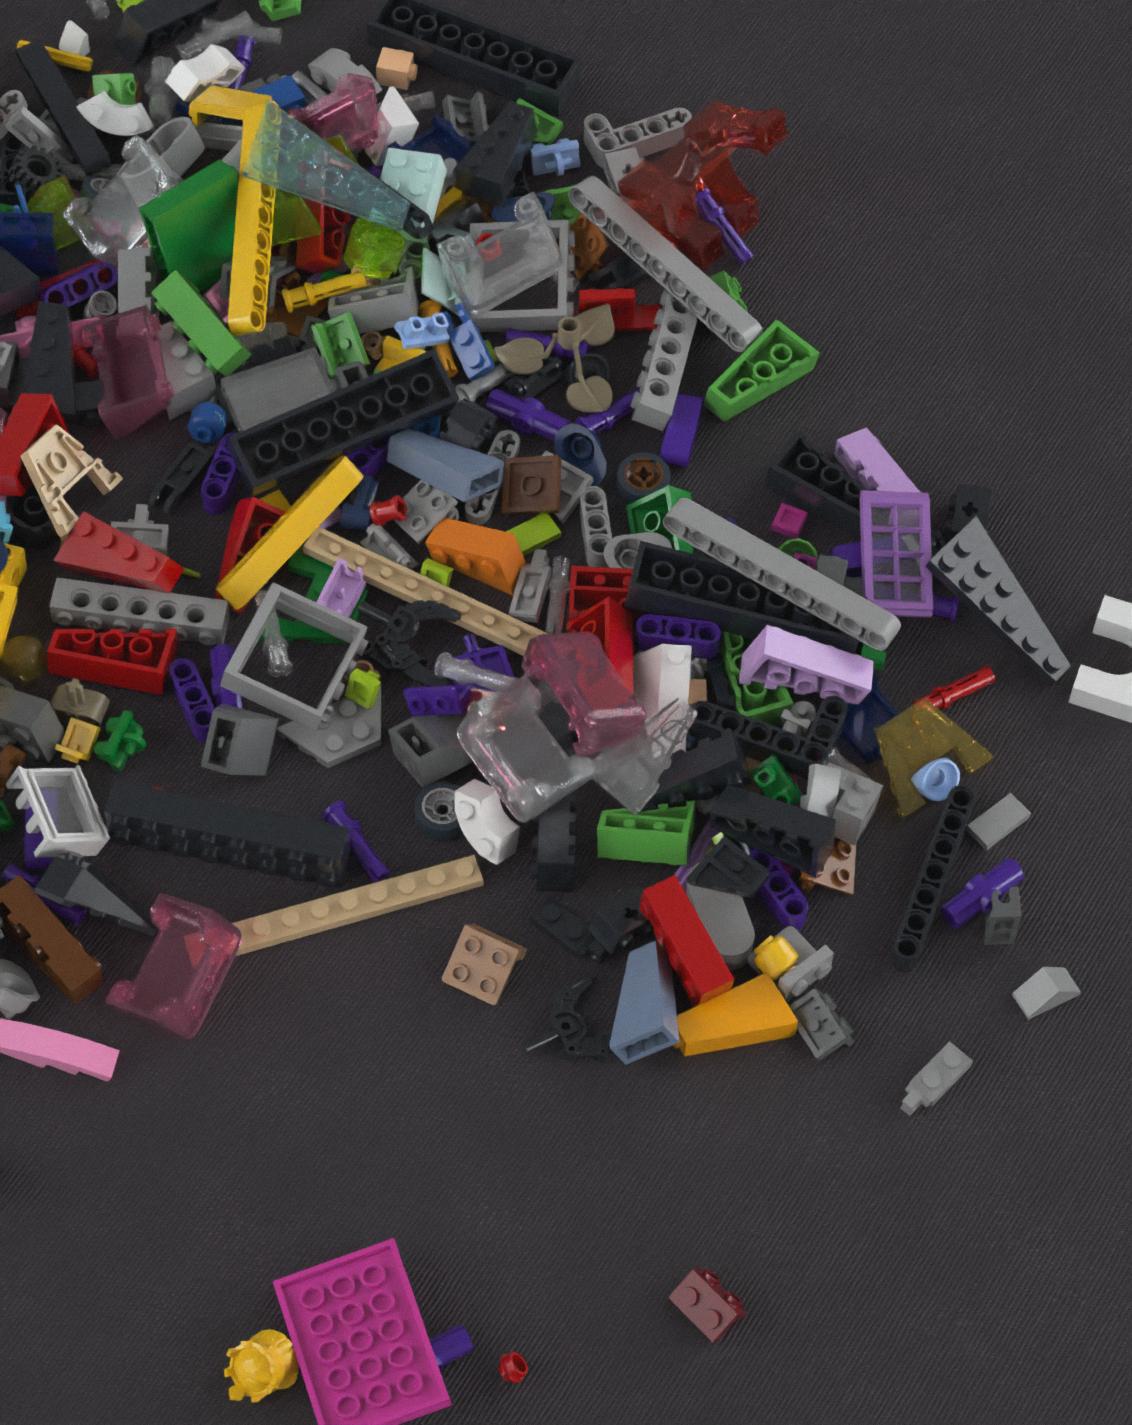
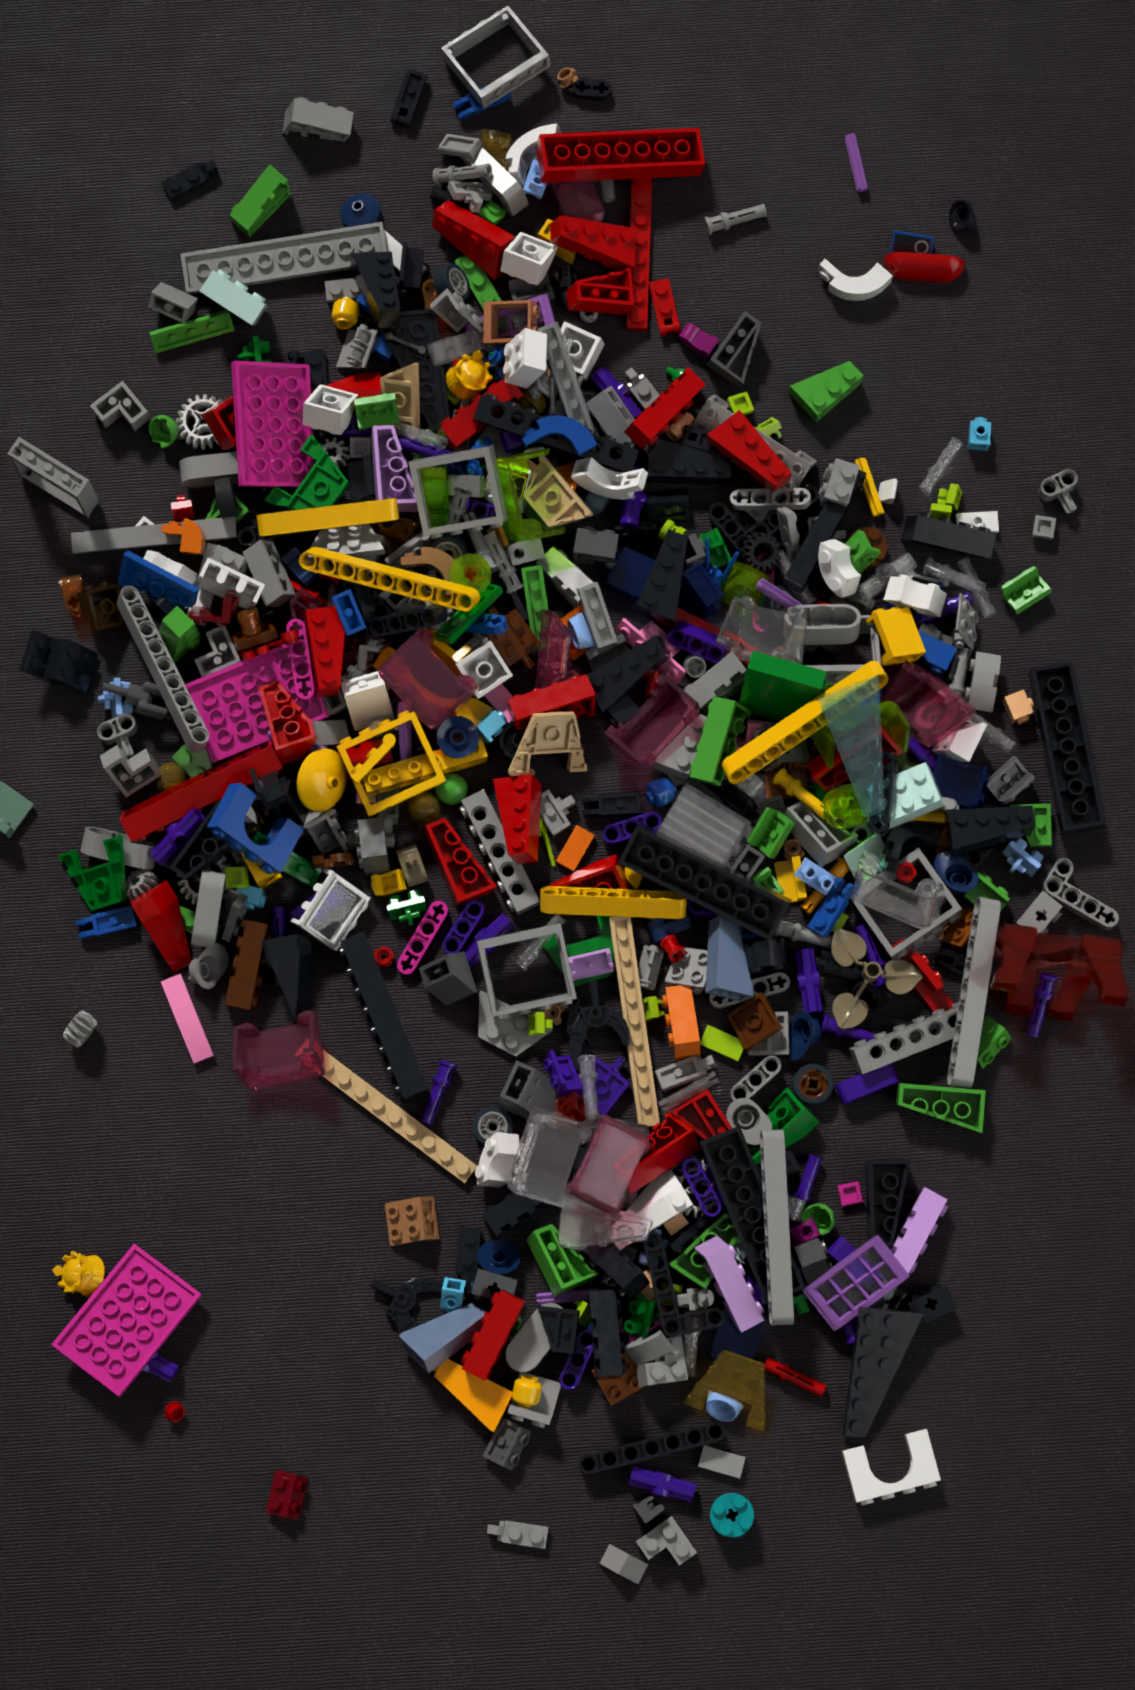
camera: 60 degrees right, 20 degrees up
(24, 64) = (839, 482): none -> light grey bracket
(29, 617) = (452, 790): none -> bright green hair
(89, 180) = (776, 594): none -> medium lavender axle
(169, 749) = (425, 939): none -> dark pink beam
(197, 542) = (575, 848): none -> orange tile
(270, 57) = (965, 624): none -> light grey hinge
(596, 894) = (499, 1251): none -> dark blue dish
(597, 966) = (452, 1298): none -> medium azure brick
(1050, 922) = (667, 1536): none -> light grey brick
(1067, 843) = (724, 1525): none -> teal brick

